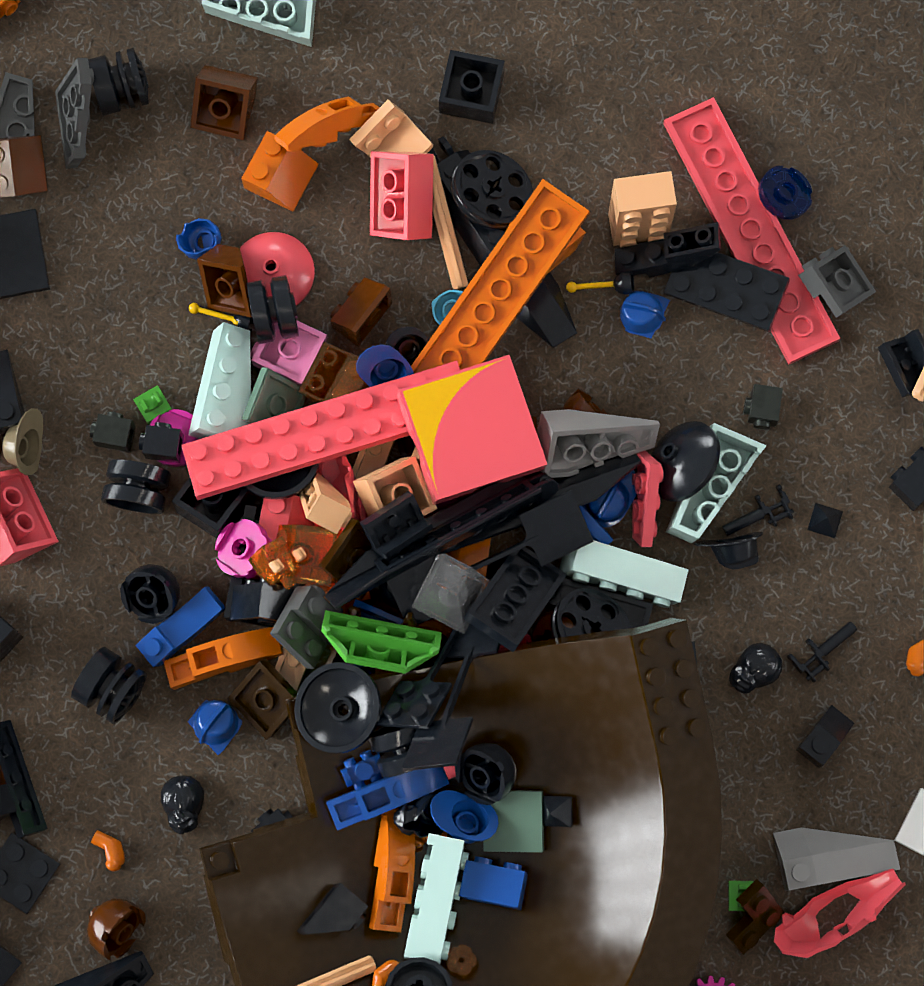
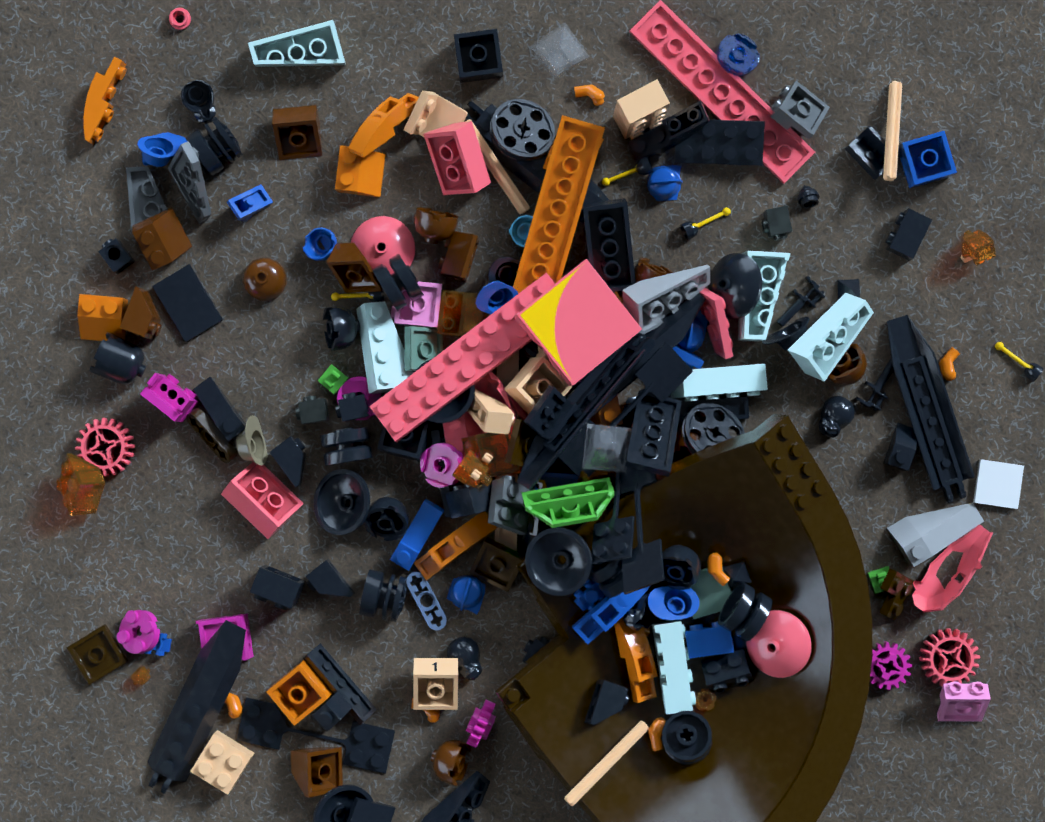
camera: 20 degrees left, 10 degrees up
(49, 64) = (159, 148): none -> blue piece
(50, 644) = (328, 581): none -> black slope
(63, 480) = (291, 459): none -> black slope
(97, 545) = (333, 499): none -> black dish
(117, 257) = (264, 279): none -> reddish brown cylinder
(119, 19) = (195, 94): none -> black hair
(131, 819) = (435, 684): none -> light nougat brick
(134, 162) = (250, 203): none -> slope
(152, 694) = (428, 618): none -> sand blue beam
(168, 890) = (480, 723): none -> dark pink gear
(185, 344) = (341, 328): none -> black cylinder
(344, 263) = (434, 225): none -> reddish brown cylinder
(501, 933) = (727, 671): none -> black bracket
(532, 792) = (714, 568): none -> orange arm
(546, 853) = (745, 611): none -> black wheel
(548, 354) = (609, 242): none -> black brick
(571, 118) = (559, 51): none -> clear slope
(592, 175) = (591, 91): none -> orange arm
(593, 922) = (791, 645): none -> coral dish
(656, 377) = (692, 228): none -> hinge
(781, 564) = (831, 336): none -> light aqua wedge
(788, 605) = (850, 367): none -> reddish brown cylinder
(813, 390) = (808, 197): none -> black plate
(876, 700) = (929, 408): none -> black hinge

